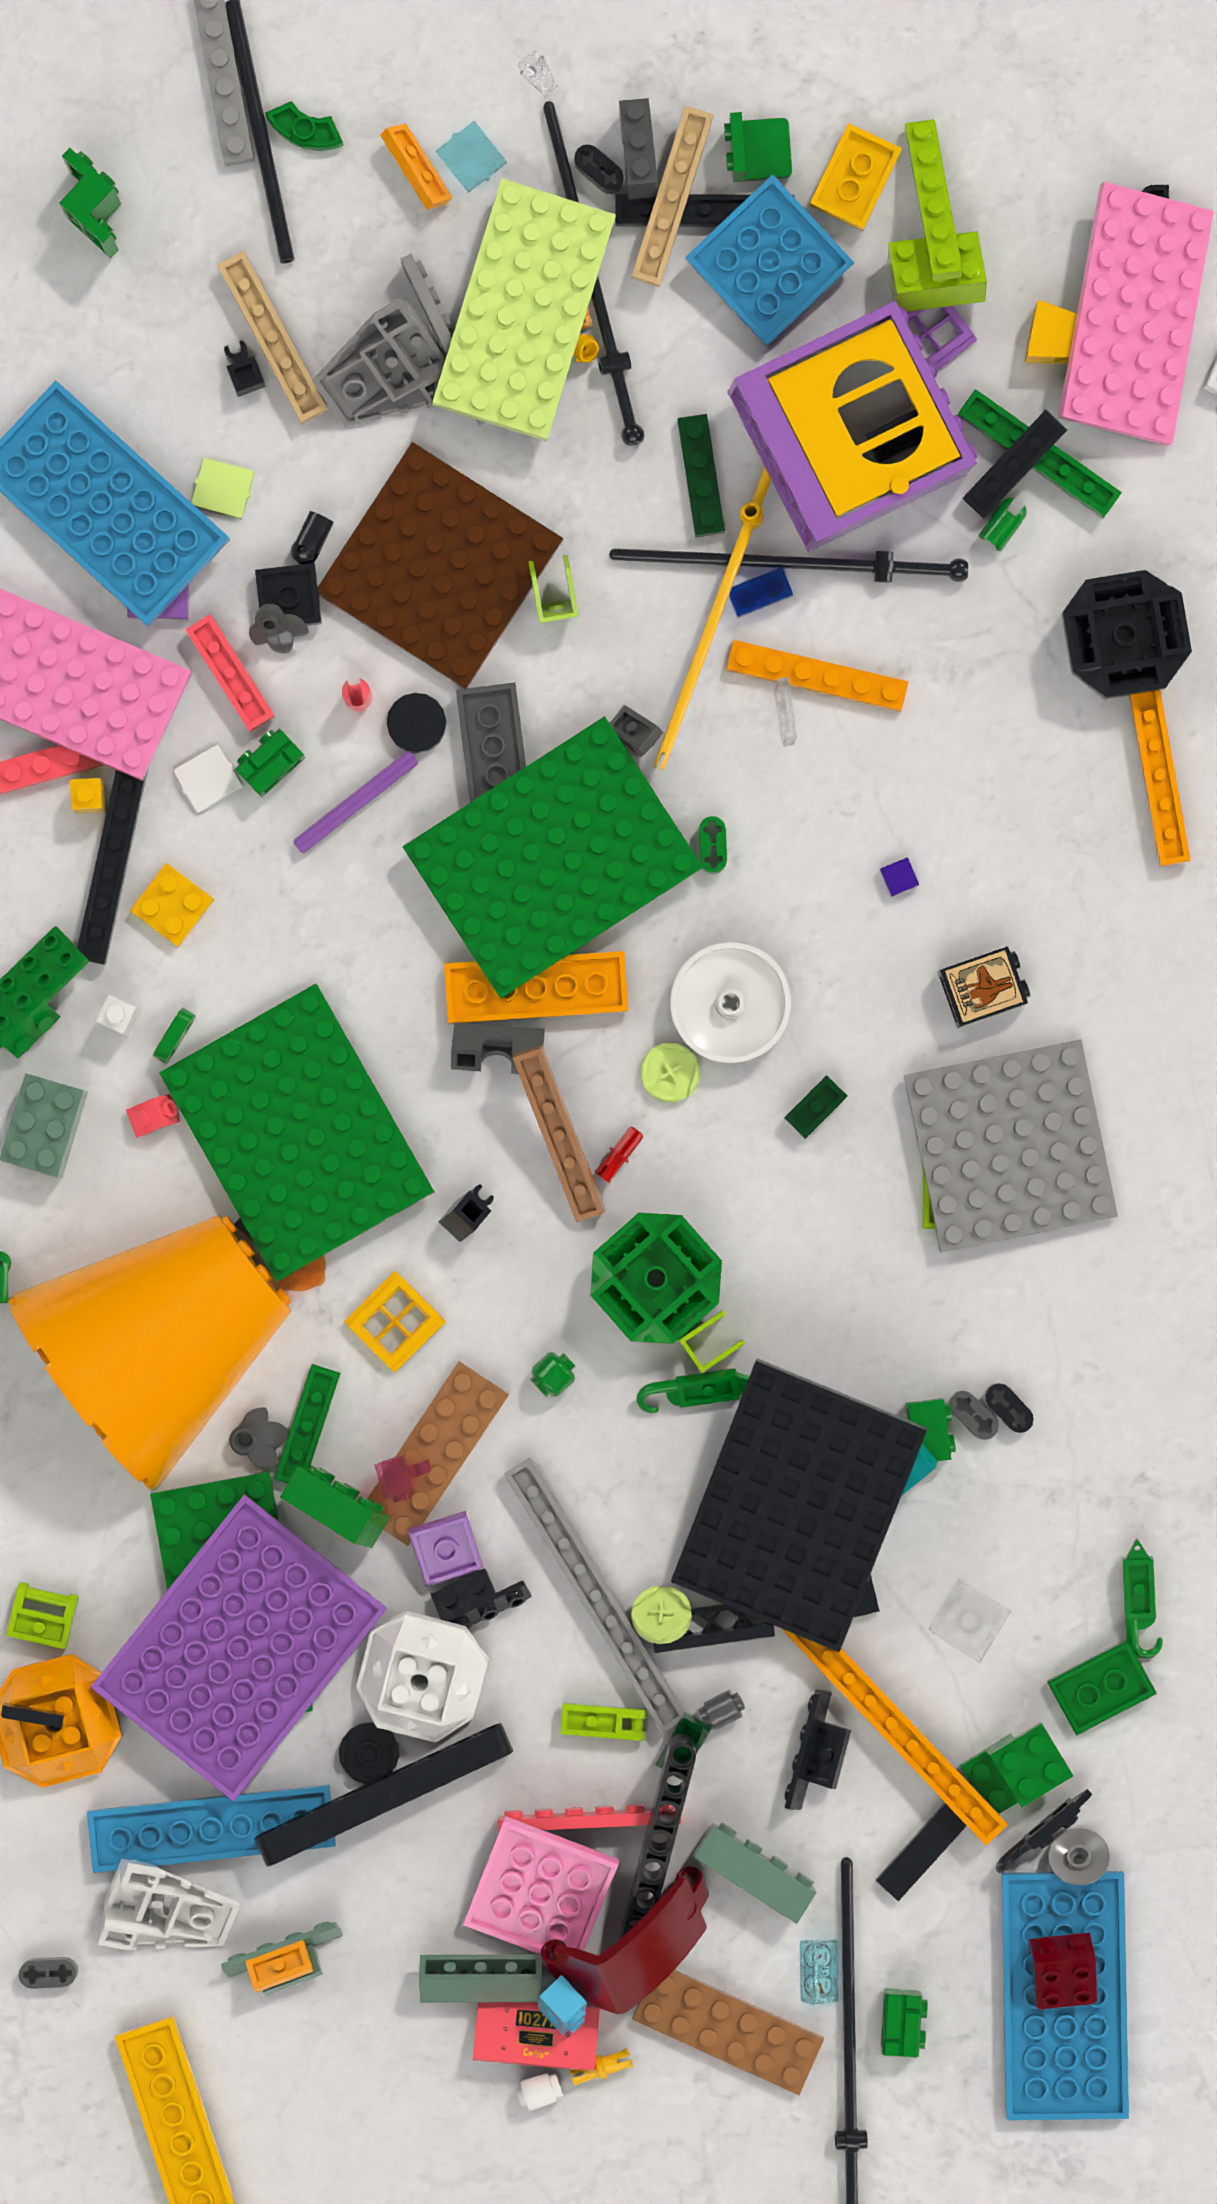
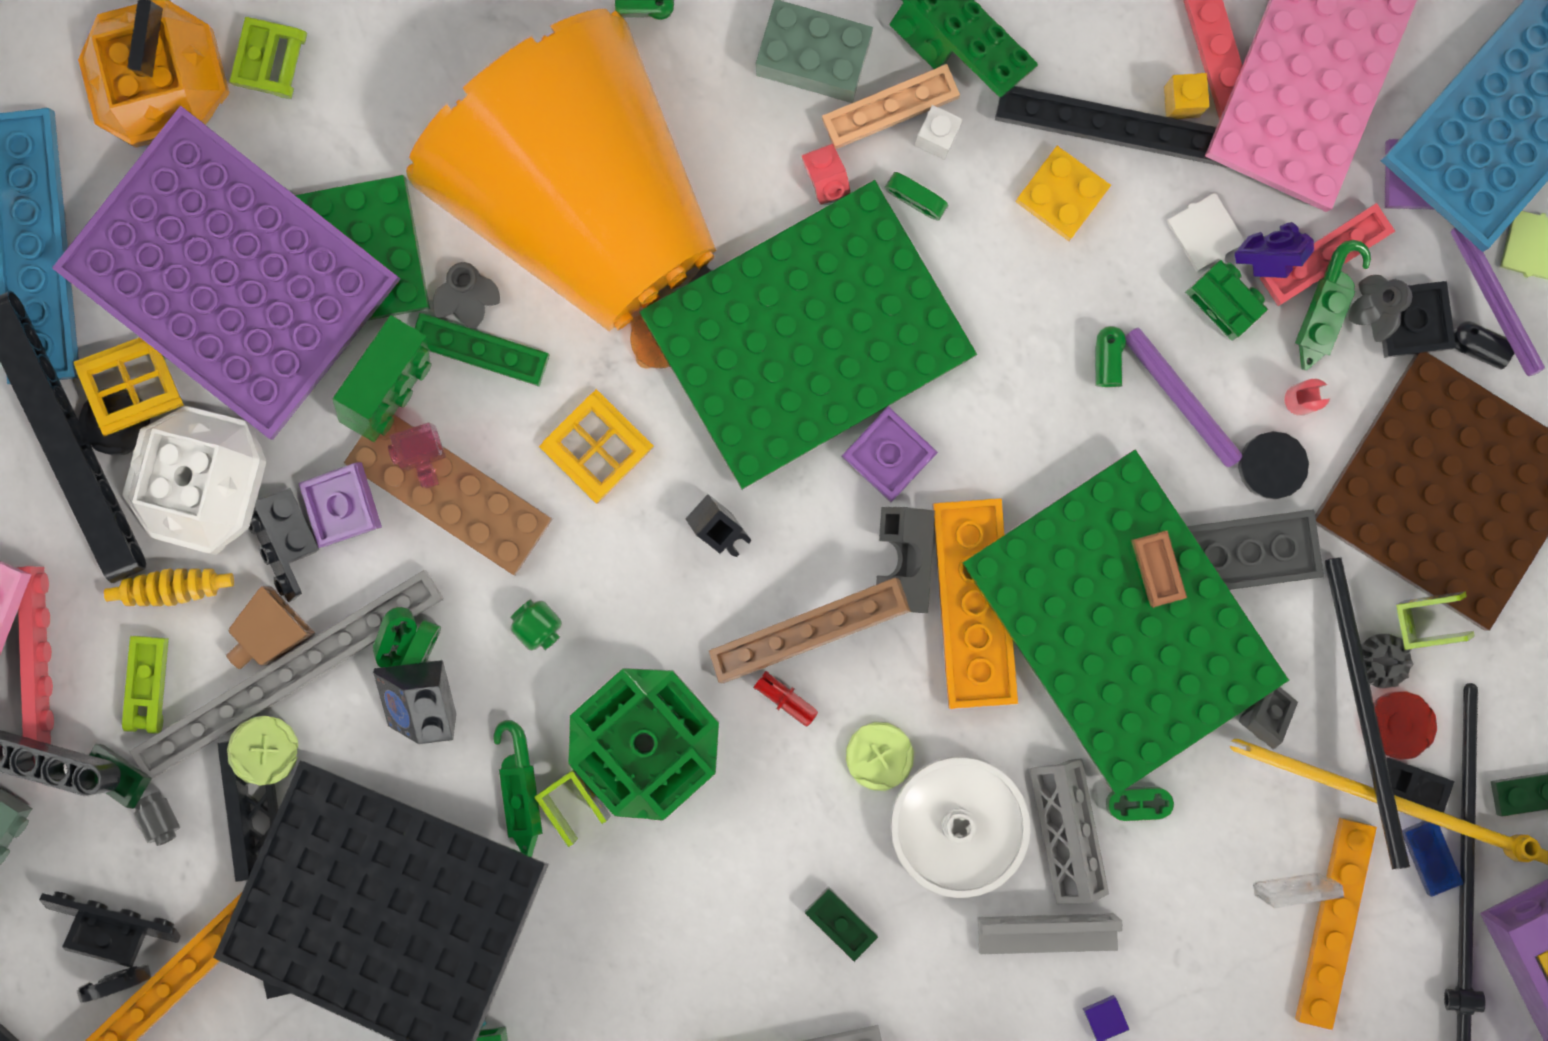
camera: 90 degrees right, 0 degrees up
(93, 1057) = (890, 106): none -> light nougat plate
(229, 720) = (1276, 252): none -> dark purple plate
(276, 673) = (1329, 306): none -> green plate
(279, 524) = (1499, 305): none -> medium lavender axle
(320, 866) = (1109, 357): none -> green piece
(360, 1727) = (139, 410): none -> yellow piece
(404, 1061) = (889, 454): none -> medium lavender plate
(506, 828) = (1159, 569): none -> nougat tile
(517, 1700) = (169, 587): none -> yellow piece
(556, 1613) = (266, 629): none -> medium nougat torso
(562, 1502) = (387, 637): none -> green beam
(576, 1478) = (422, 643): none -> green beam
(598, 639) = (1376, 647): none -> dark grey gear
(618, 1478) = (417, 701): none -> black slope
(632, 649) = (1367, 714): none -> black piece
(645, 615) = (1405, 724): none -> clear red tile
(697, 605) = (1419, 785): none -> black slope
(736, 901) = (1079, 836): none -> light grey fence
(825, 926) = (1048, 933): none -> light grey fence
(862, 1741) = (114, 983): none -> black tile

